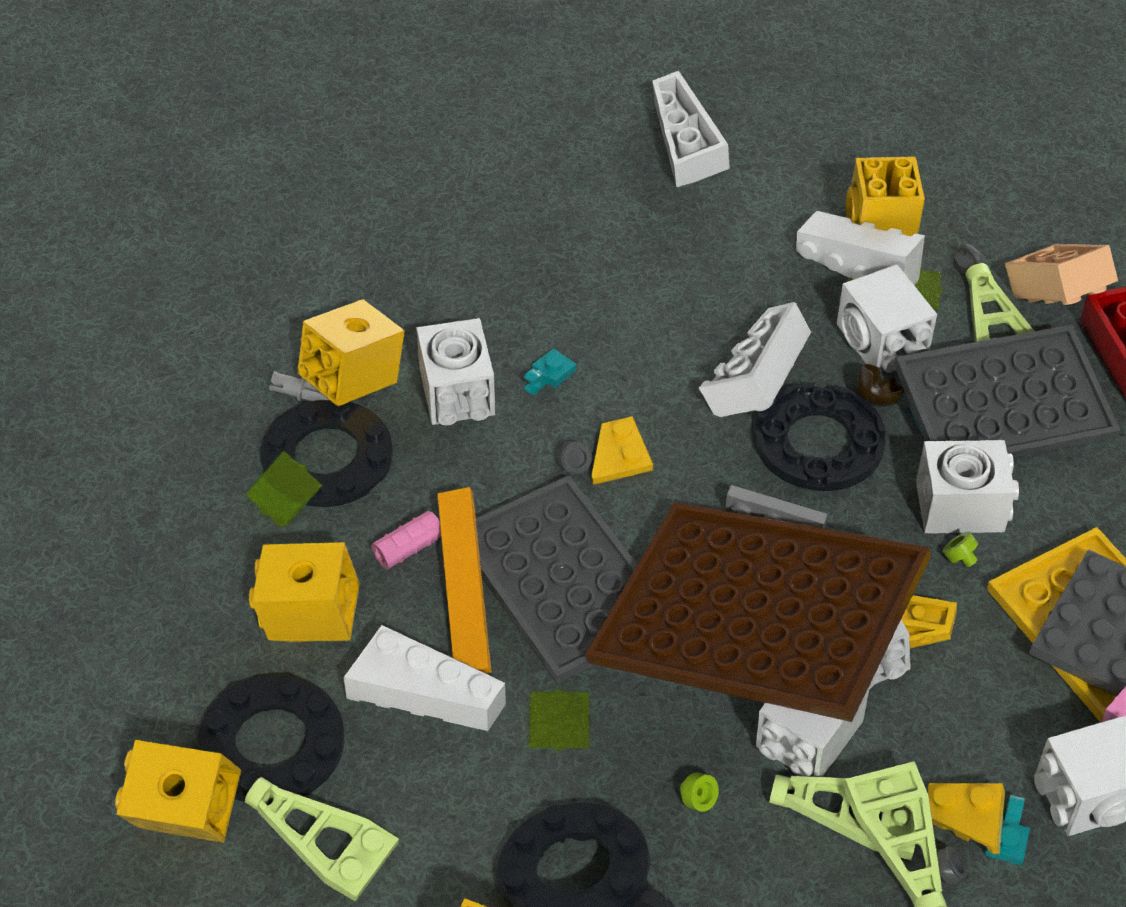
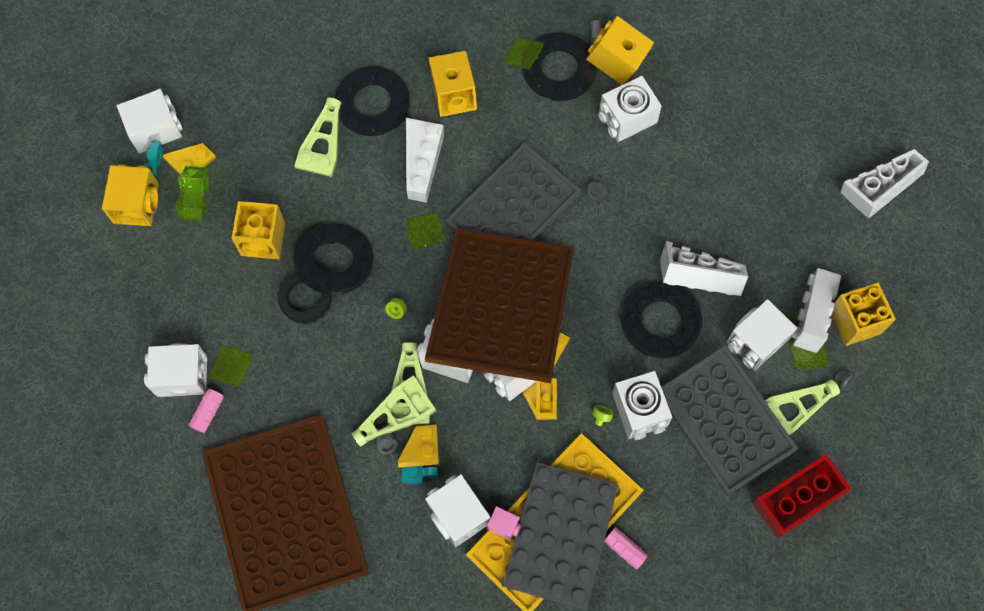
camera: 75 degrees right, 20 degrees up
(178, 790) = (317, 67): yellow brick -> none
(407, 540) = (511, 123): bright pink axle -> none
(464, 579) = (491, 157): light orange tile -> none
(549, 369) = (660, 161): teal plate -> none
(620, 452) = (612, 213): yellow wing -> none
(763, 506) = (590, 306): light grey plate -> none
(874, 389) = (709, 337): dark brown hair -> none
(1062, 273) = (839, 434): light nougat brick -> none

